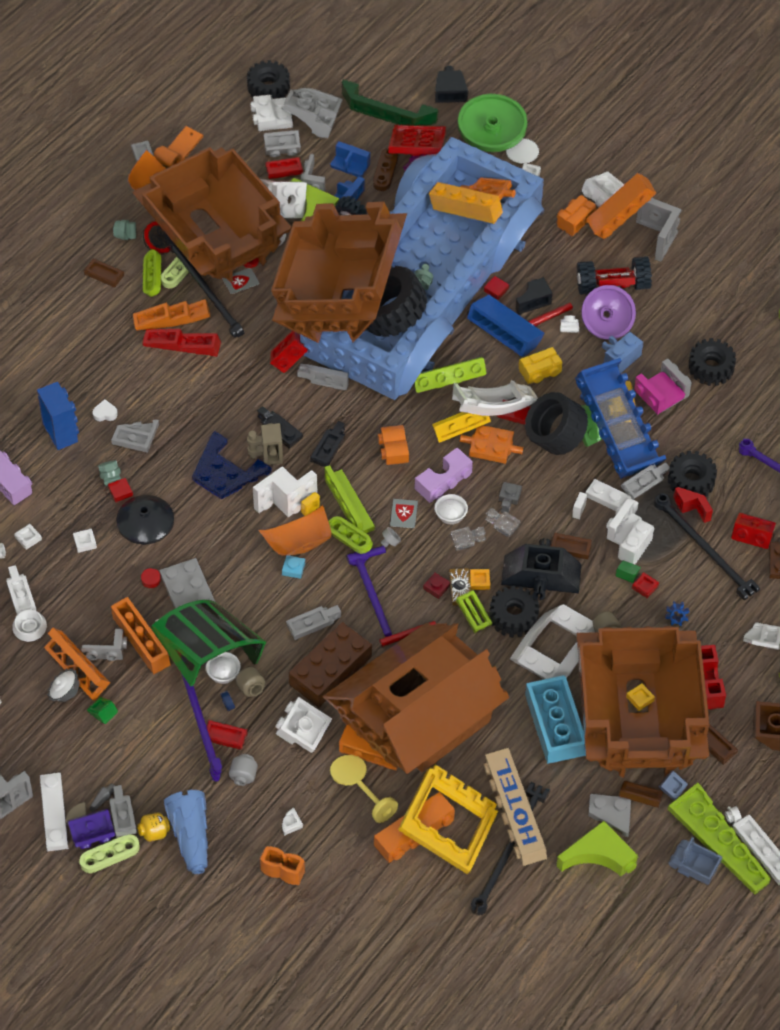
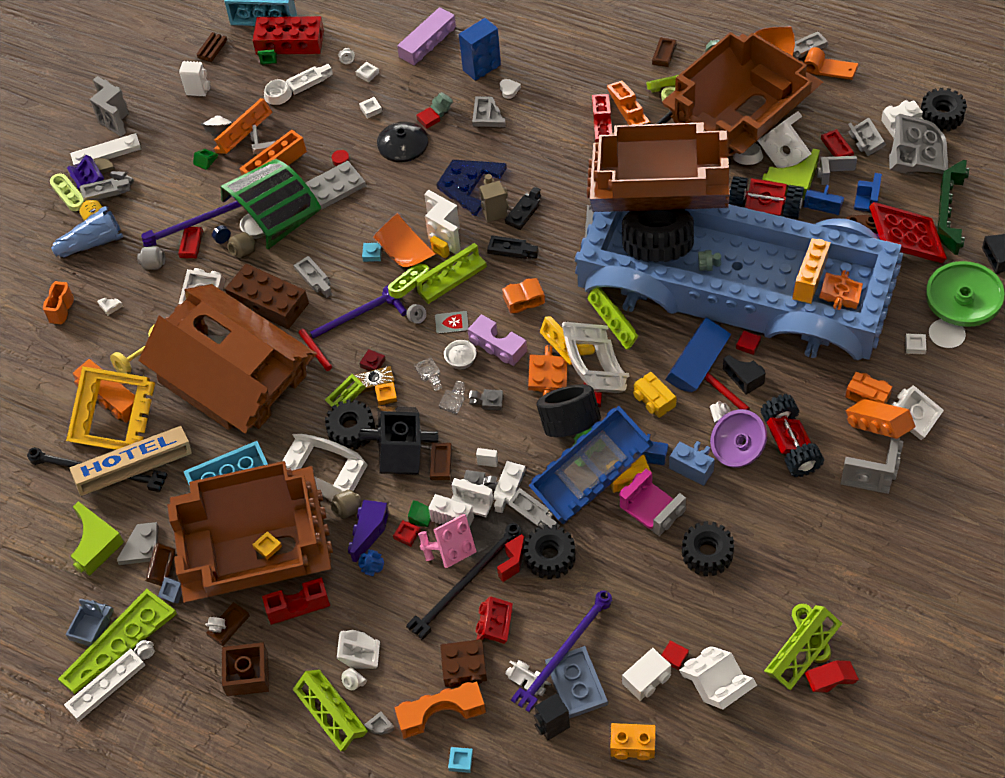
camera: 85 degrees right, 0 degrees up
(600, 519) = (480, 478): none -> flat silver plate
(635, 610) = (371, 524): none -> dark purple slope
(676, 548) = (453, 541): none -> bright pink plate
(722, 746) = (215, 624): none -> white plate

